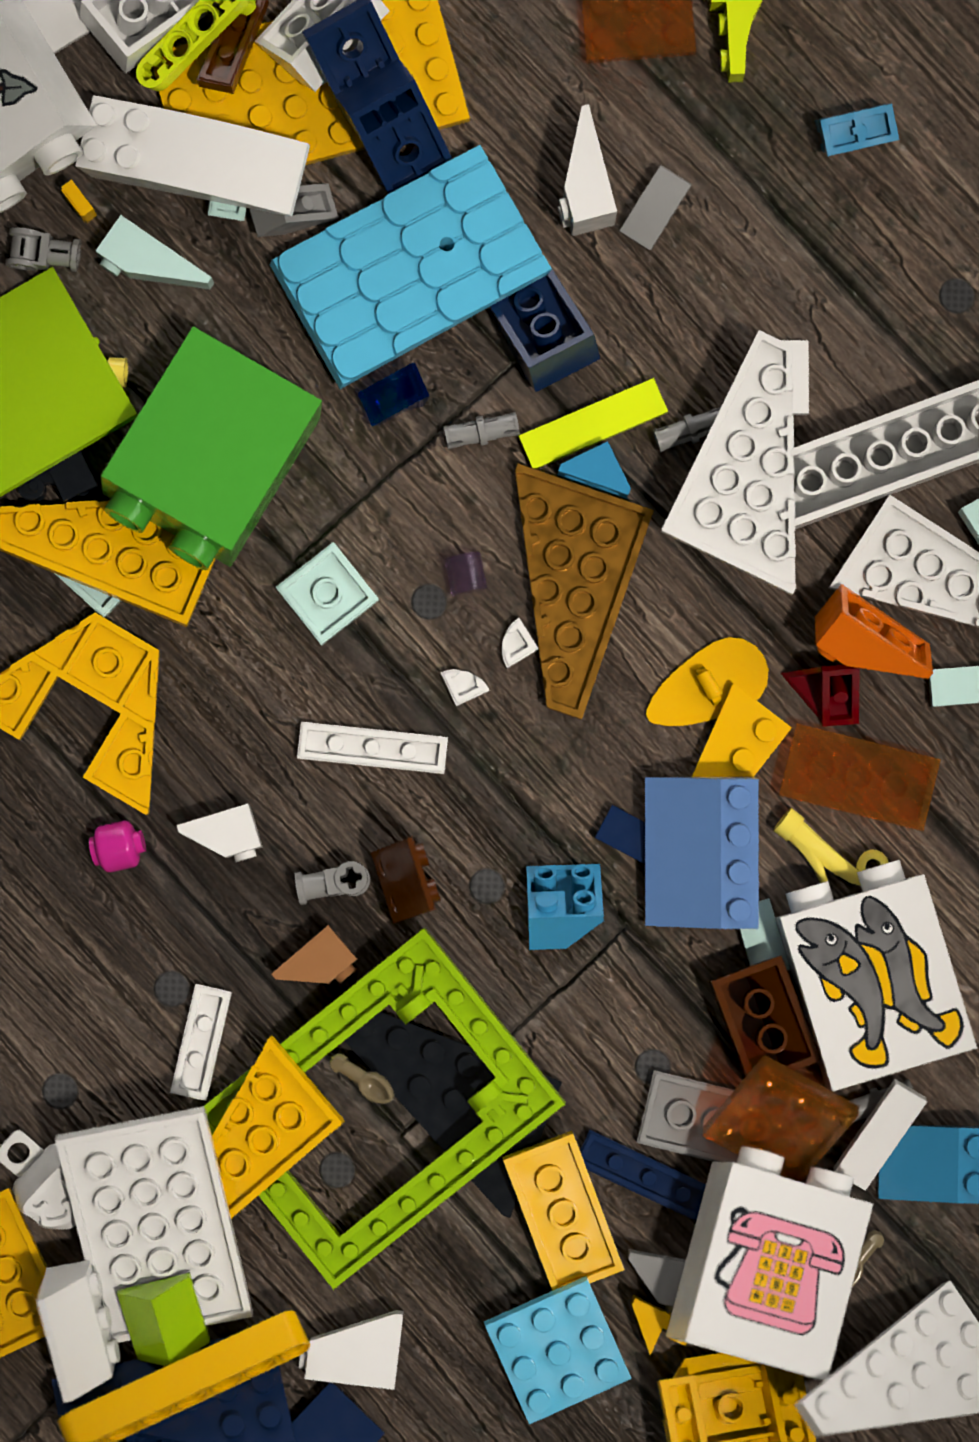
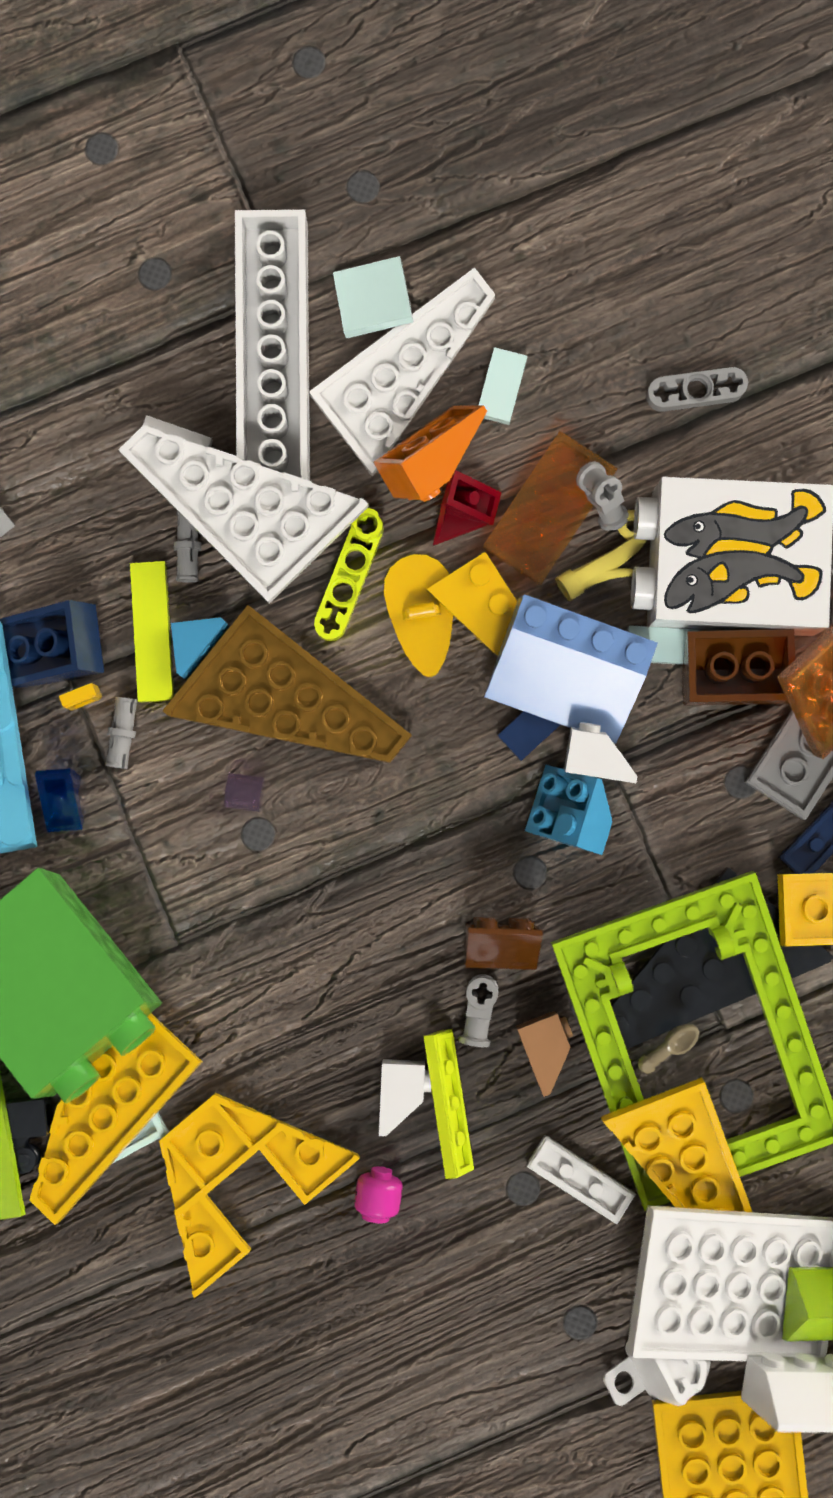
camera: 65 degrees left, 0 degrees up
(230, 884) = (448, 1103): none -> neon yellow tile
(327, 593) = (218, 923): light aqua tile -> none
(372, 747) = (370, 931): white tile -> none
(463, 685) = (344, 829): white tile -> none
(503, 378) = (80, 697): none -> yellow tile
(517, 644) = (323, 769): white tile -> none
(626, 908) = (596, 755): none -> white slope
(718, 606) = (344, 574): none -> neon yellow beam
(889, 825) = (604, 494): none -> light grey connector

